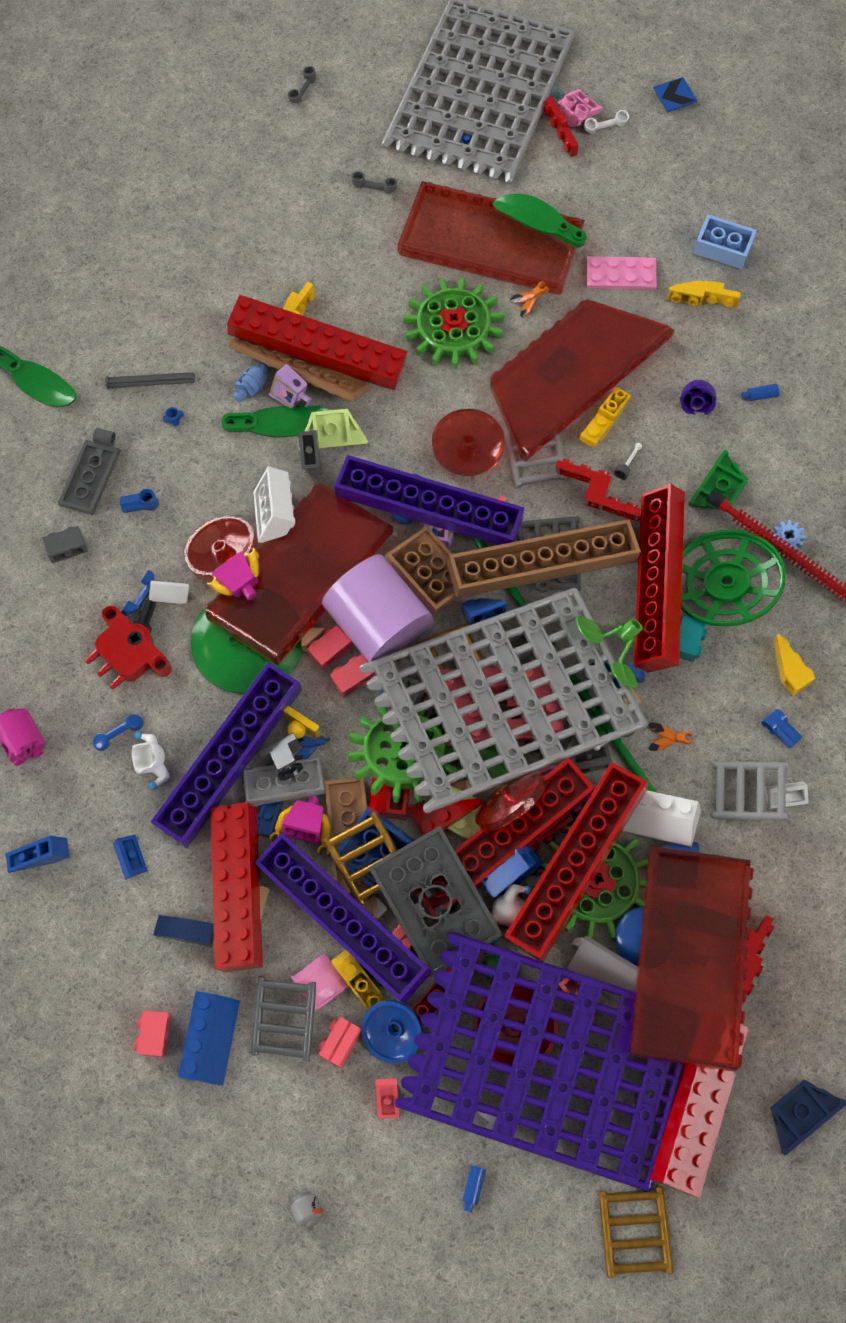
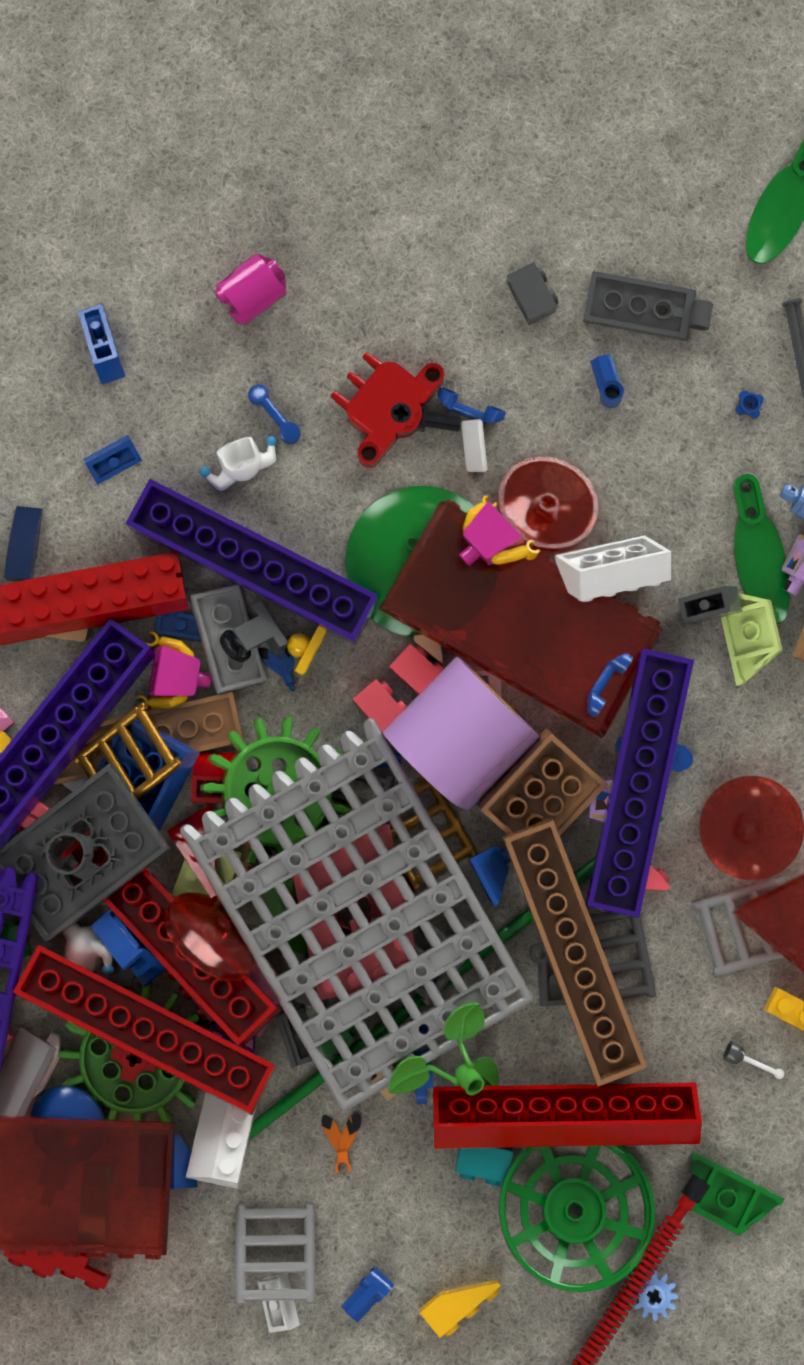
camera: 80 degrees right, 15 degrees up
(368, 524) = (594, 701): none -> blue bar
(598, 489) = (690, 1020): red bracket -> none

